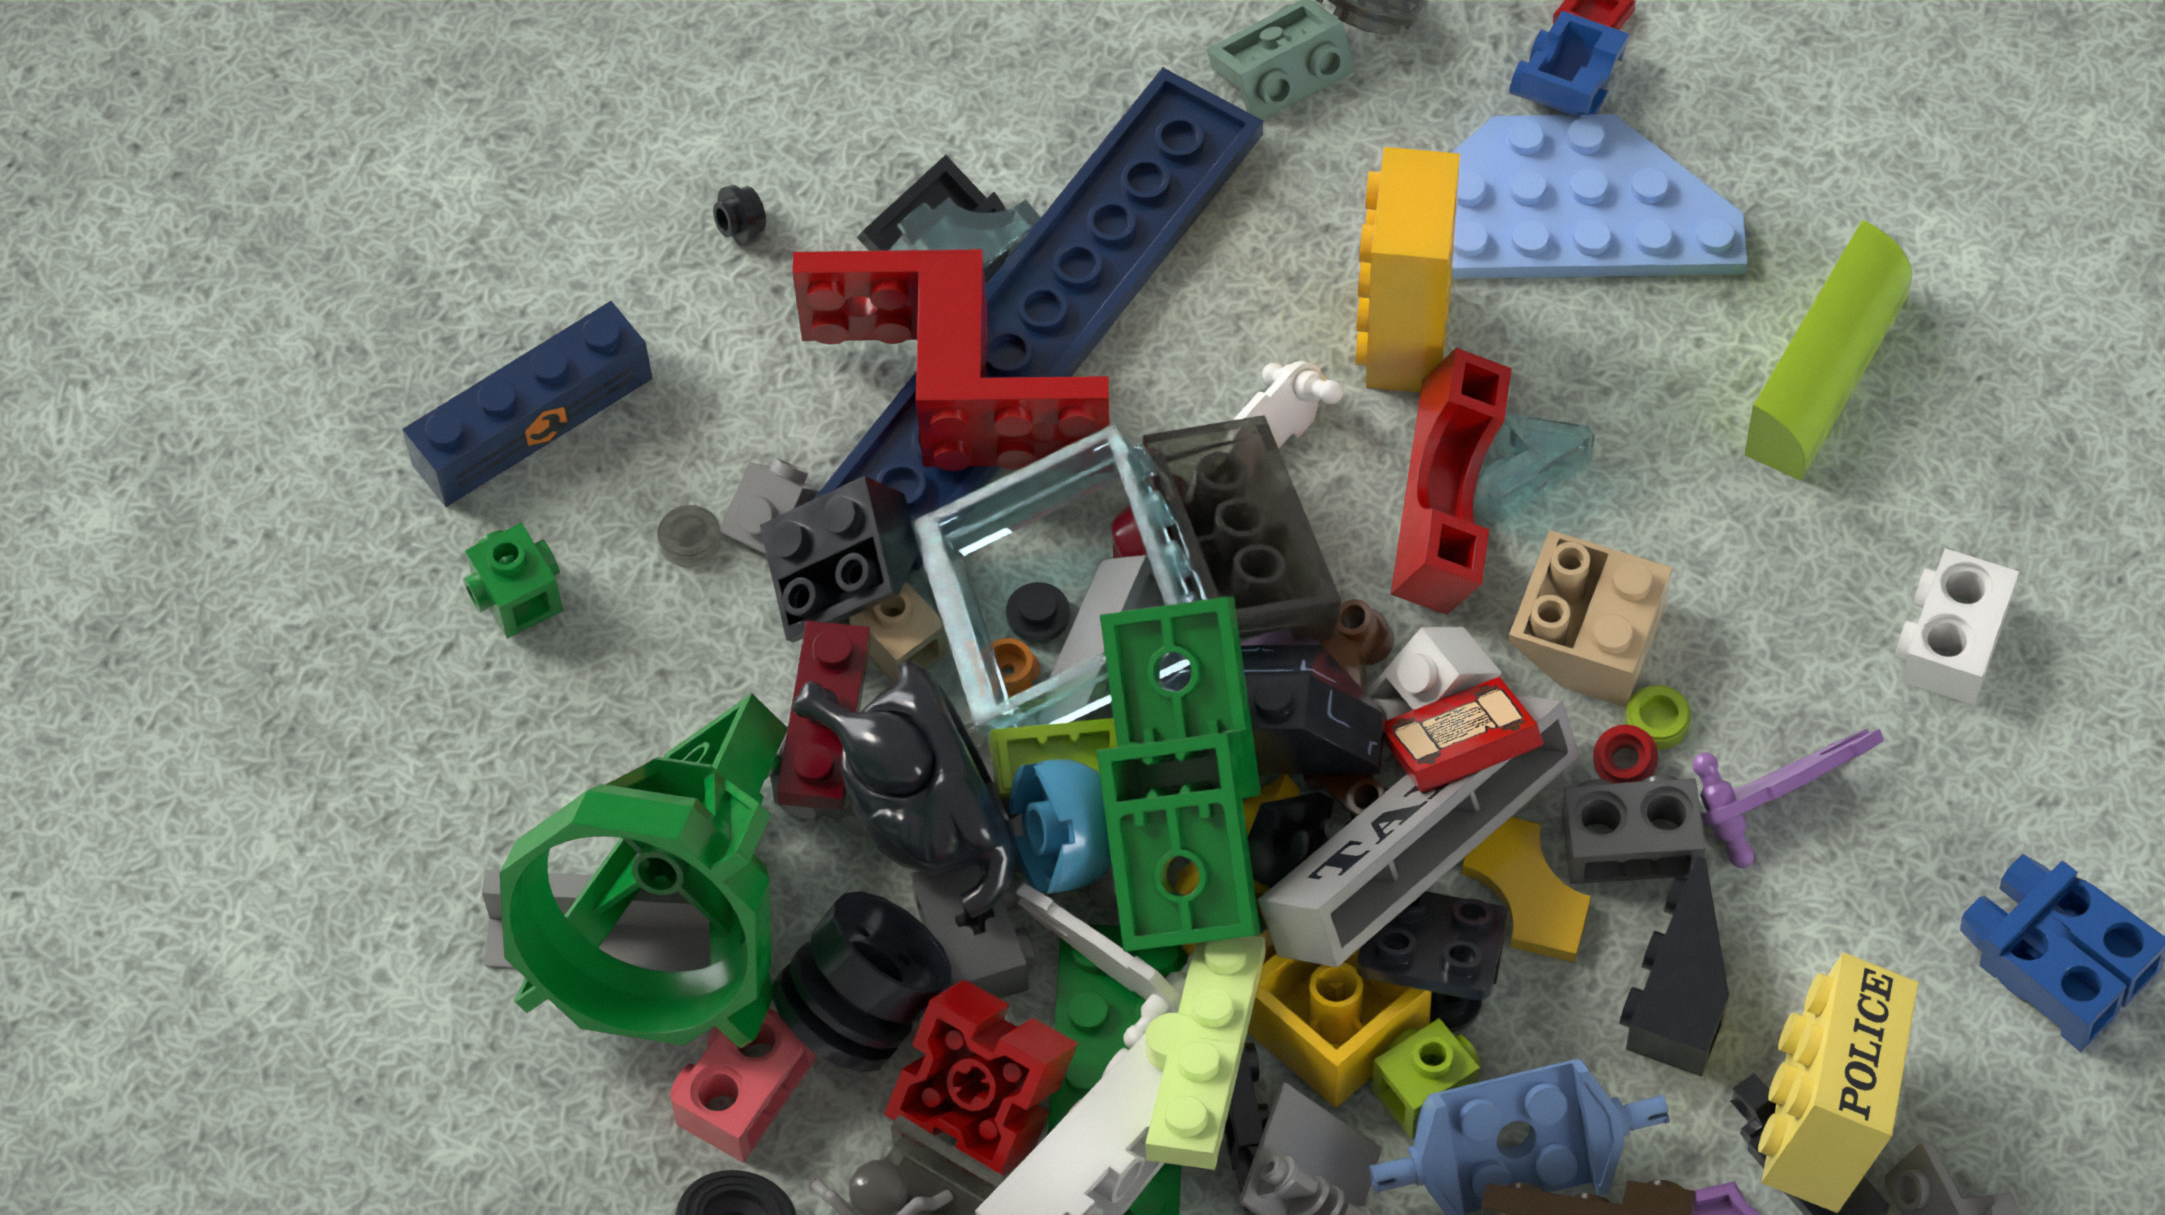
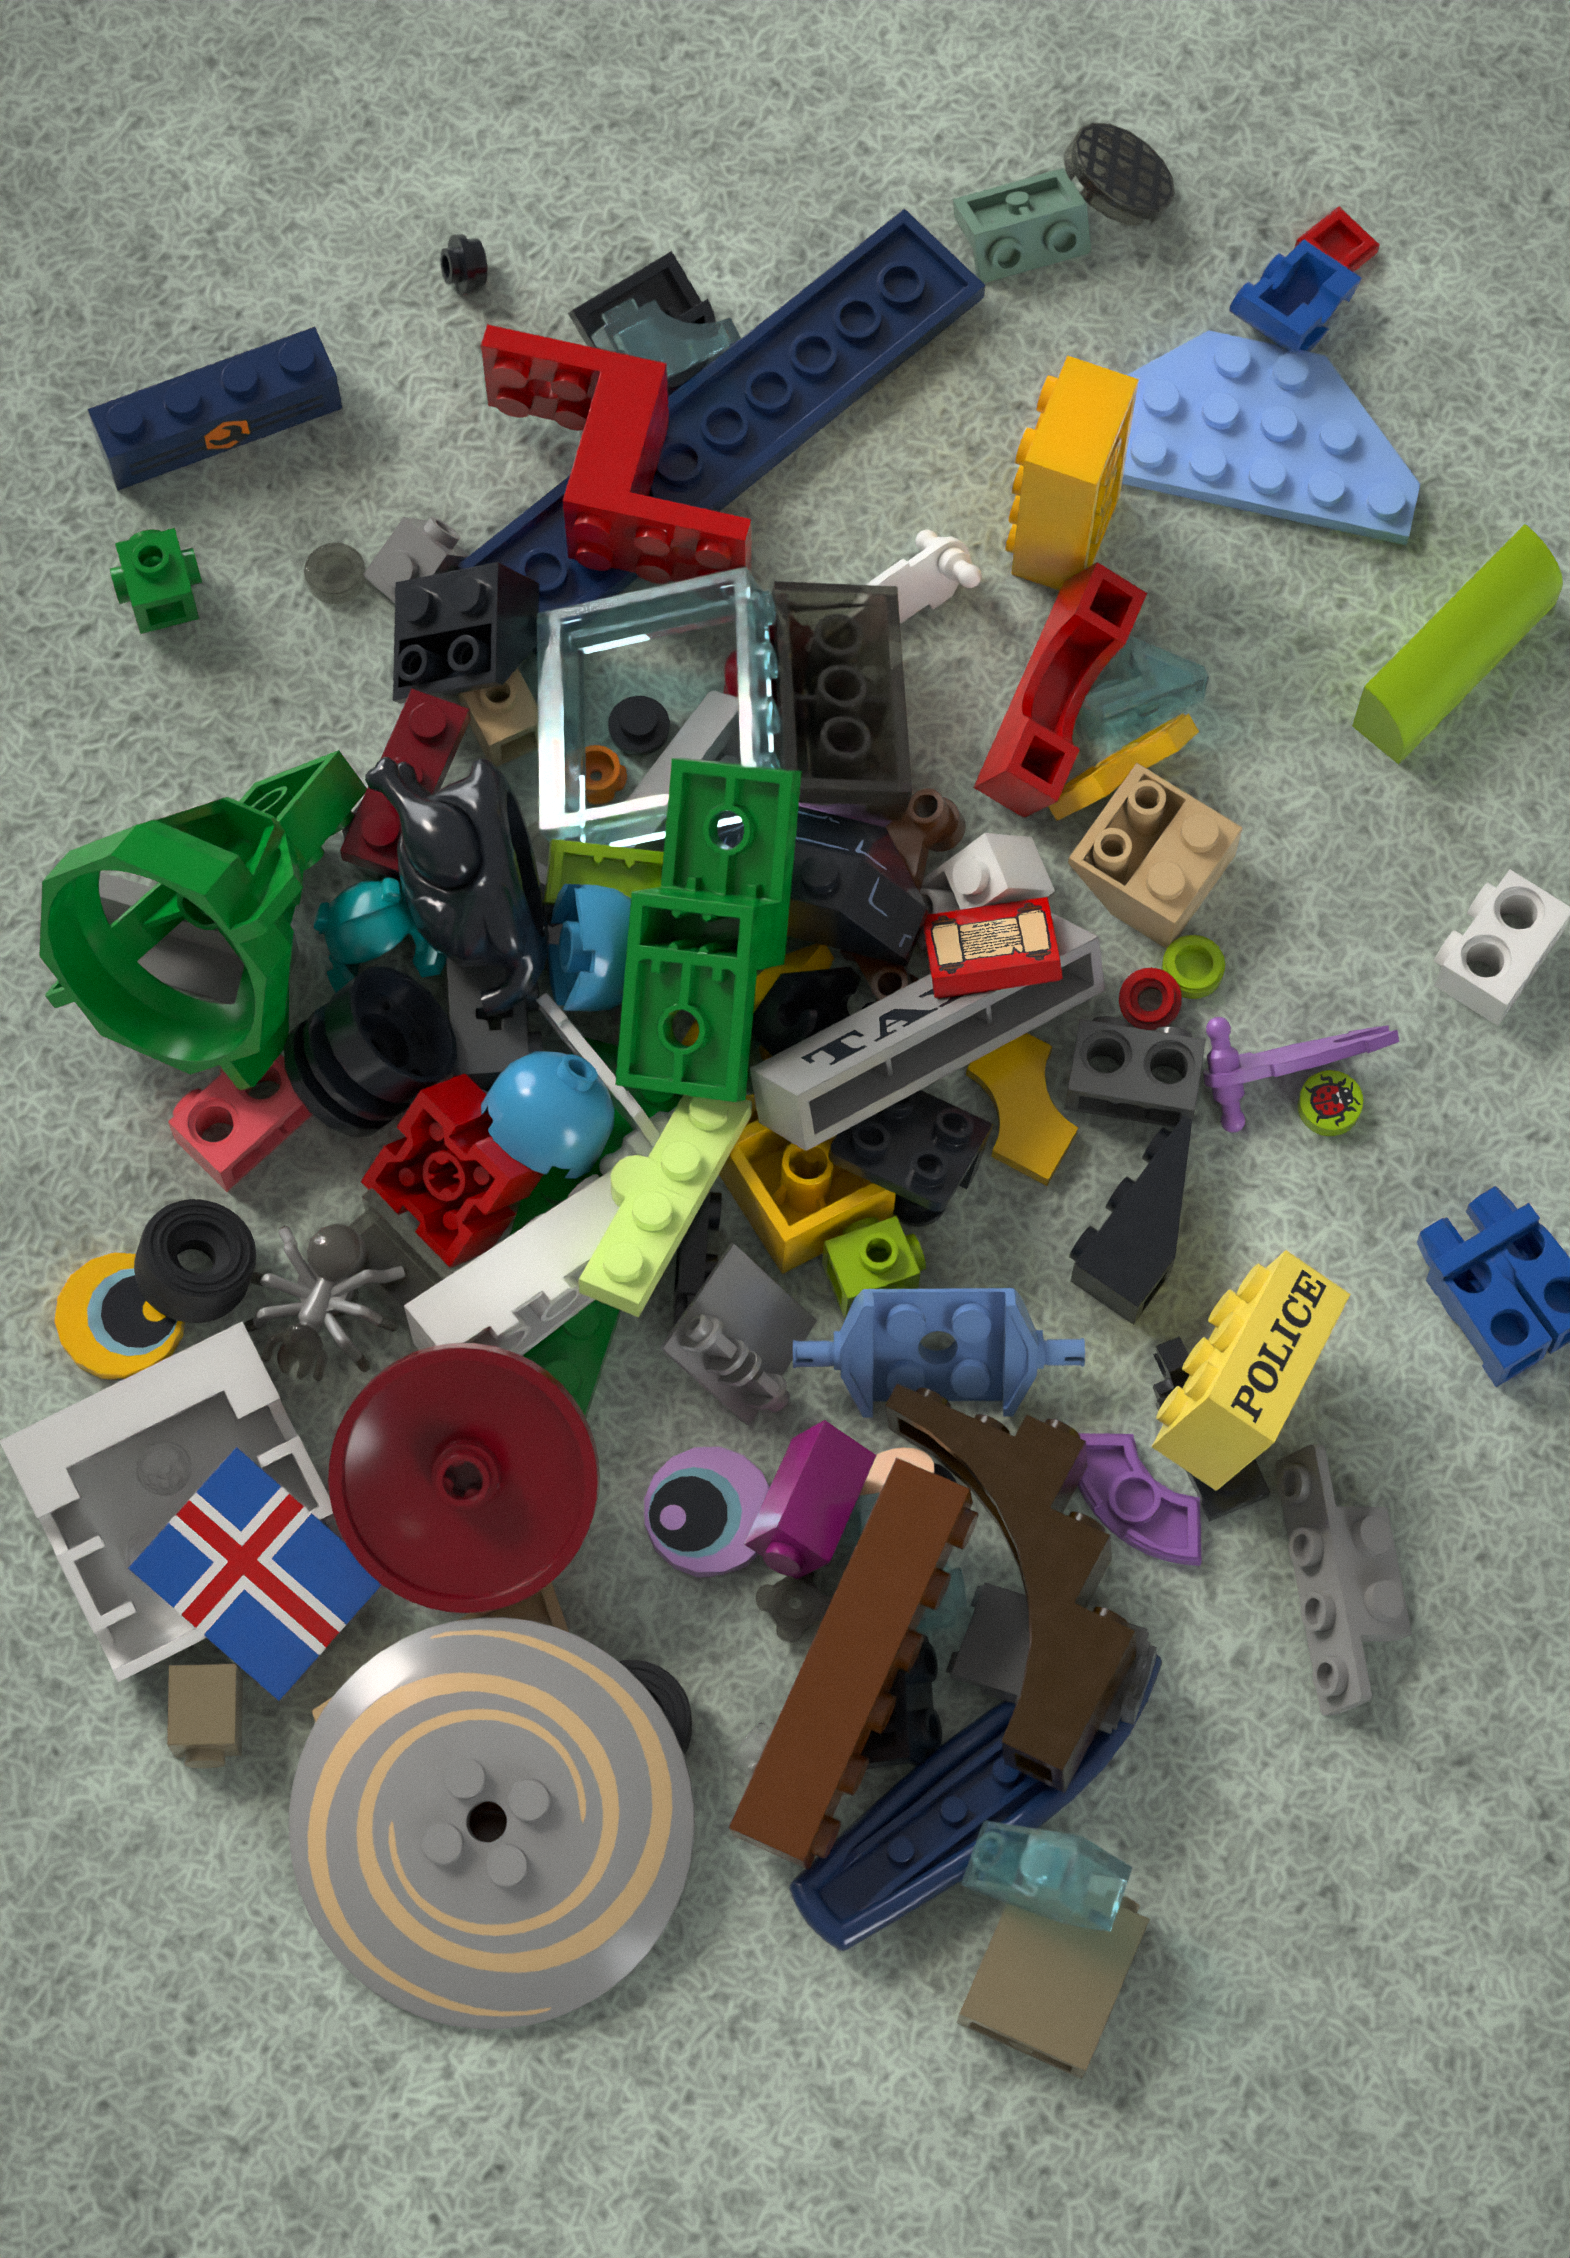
camera: 10 degrees right, 10 degrees up
(822, 859) = (368, 923): none -> teal helmet
(1065, 993) = (551, 1112): none -> dark azure cylinder
(1528, 542) = (1111, 772): none -> yellow tile
(1833, 816) = (1330, 1103): none -> tile

